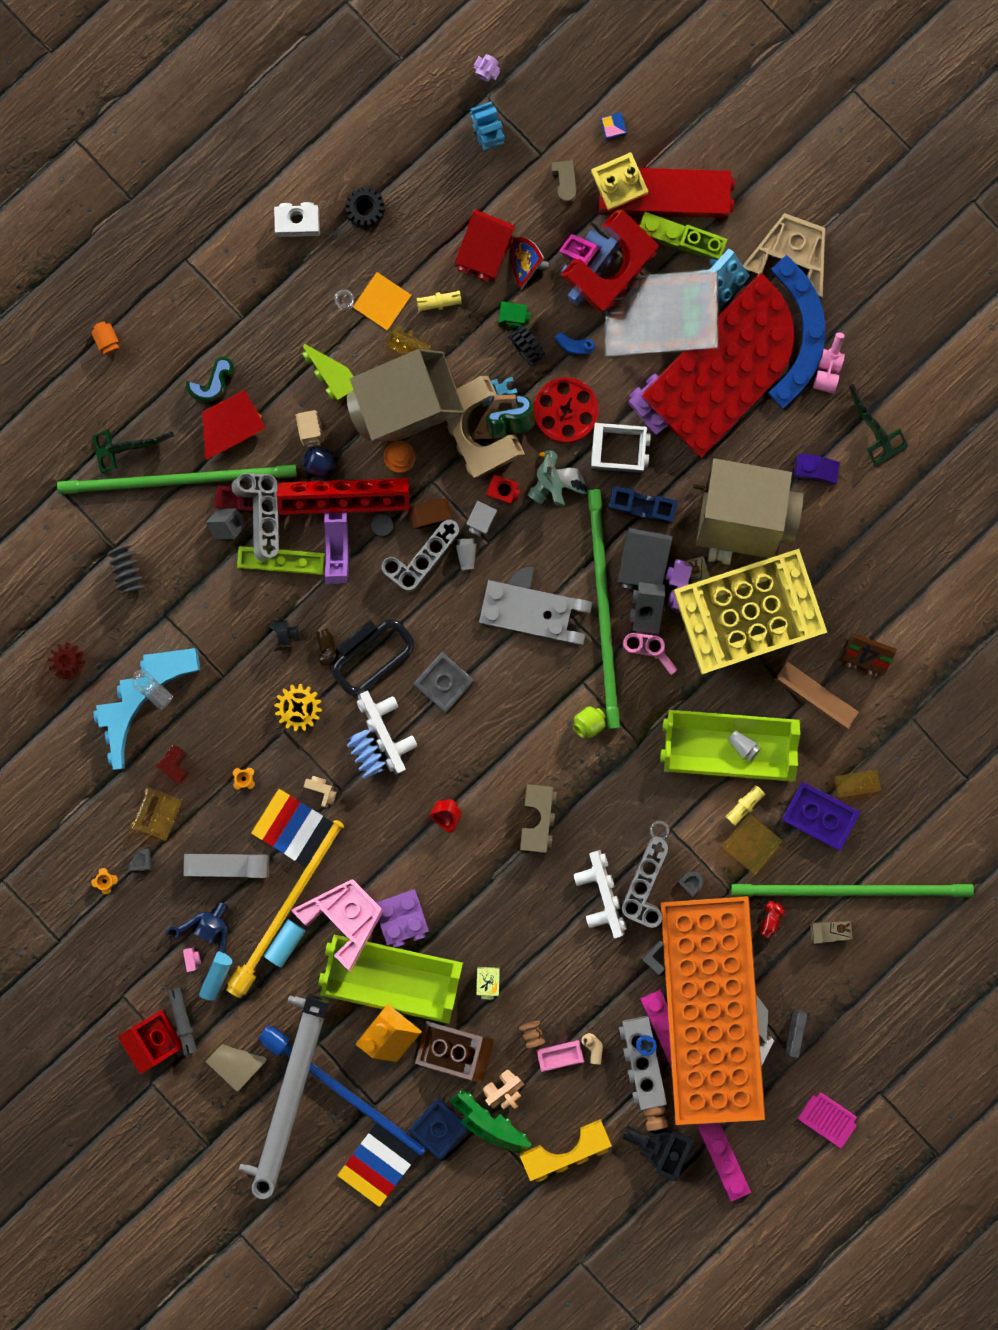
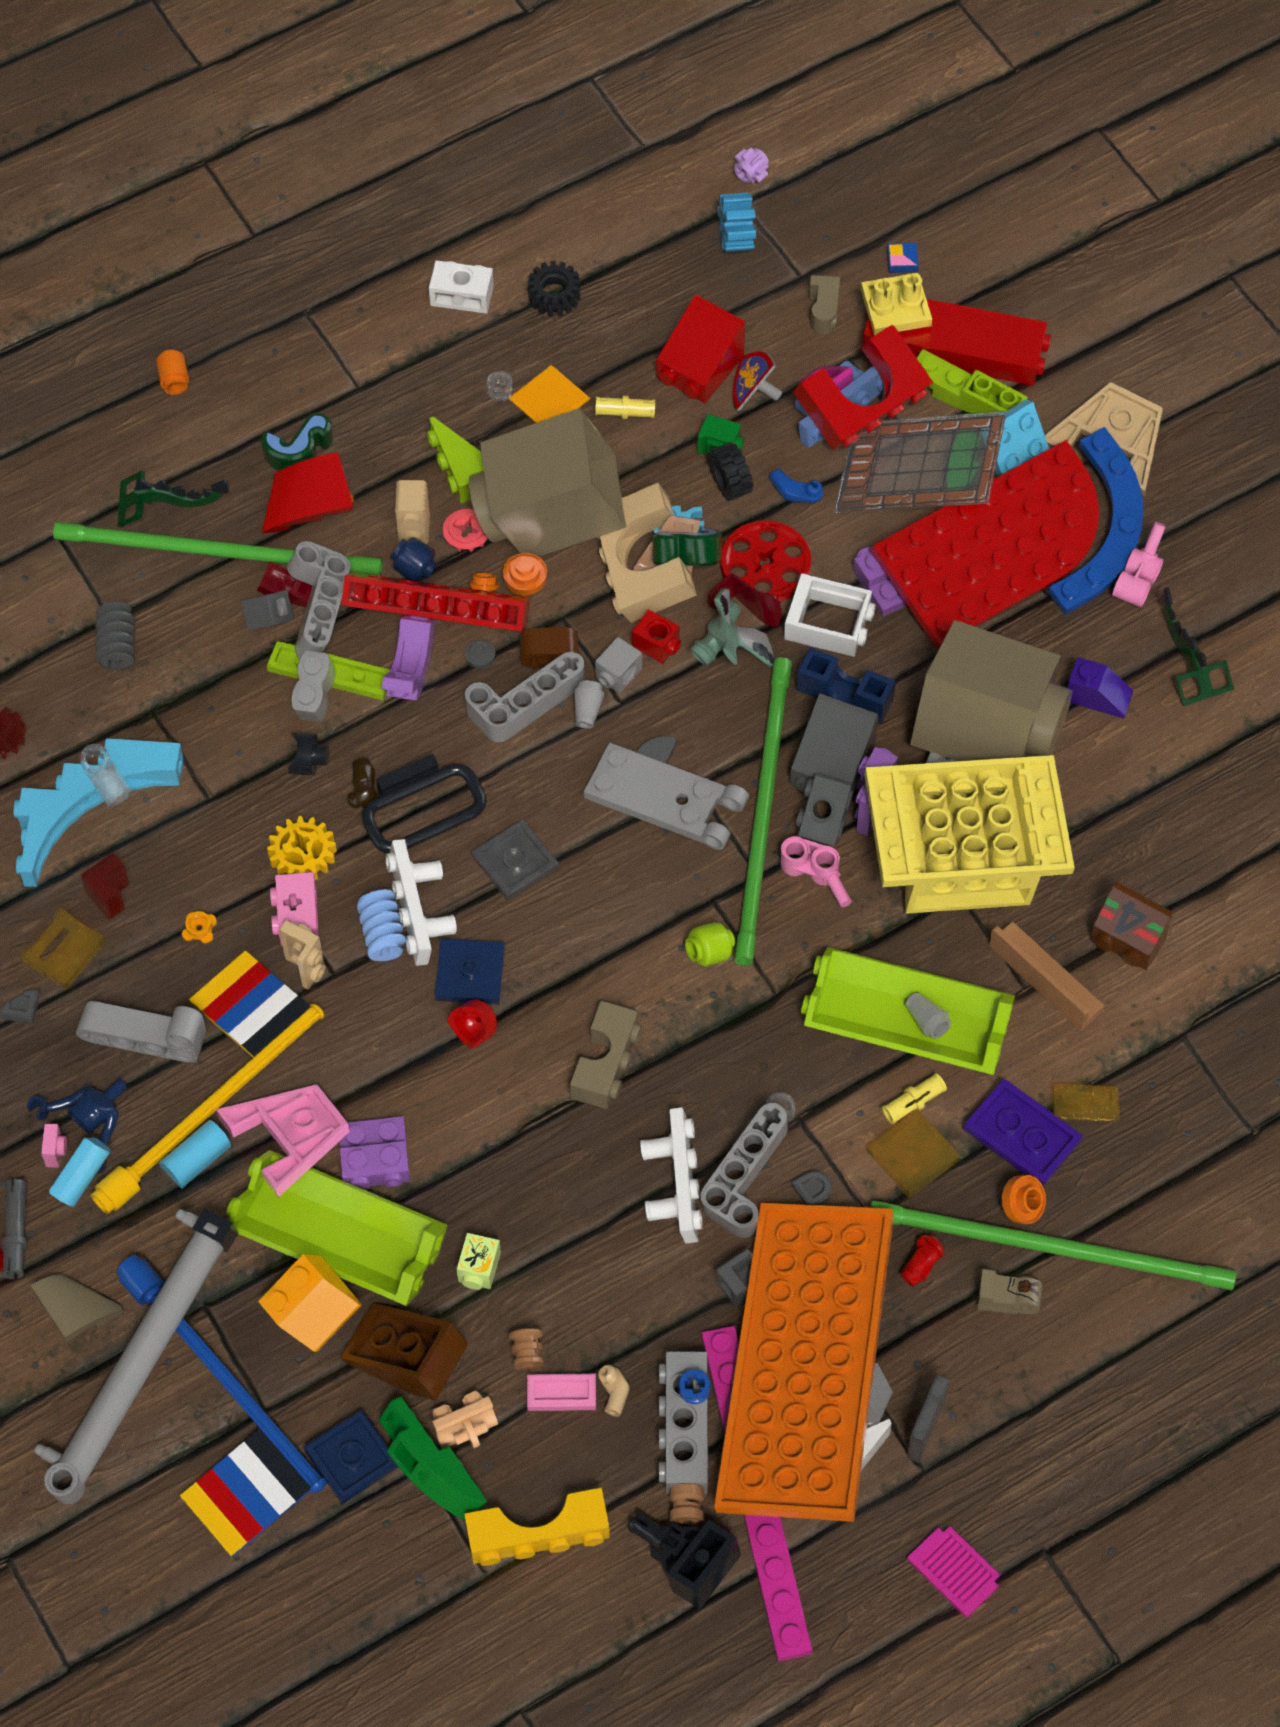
camera: 15 degrees right, 25 degrees down
(276, 588) = (310, 692): none -> light grey brick
(307, 740) = (295, 892): none -> bright pink brick
(341, 434) = (458, 522): none -> coral gear
(372, 470) = (484, 582): none -> orange plate
(433, 773) = (470, 971): none -> dark blue plate
(576, 454) = (763, 606): none -> dark red piece
(829, 865) = (1023, 1199): none -> orange plate

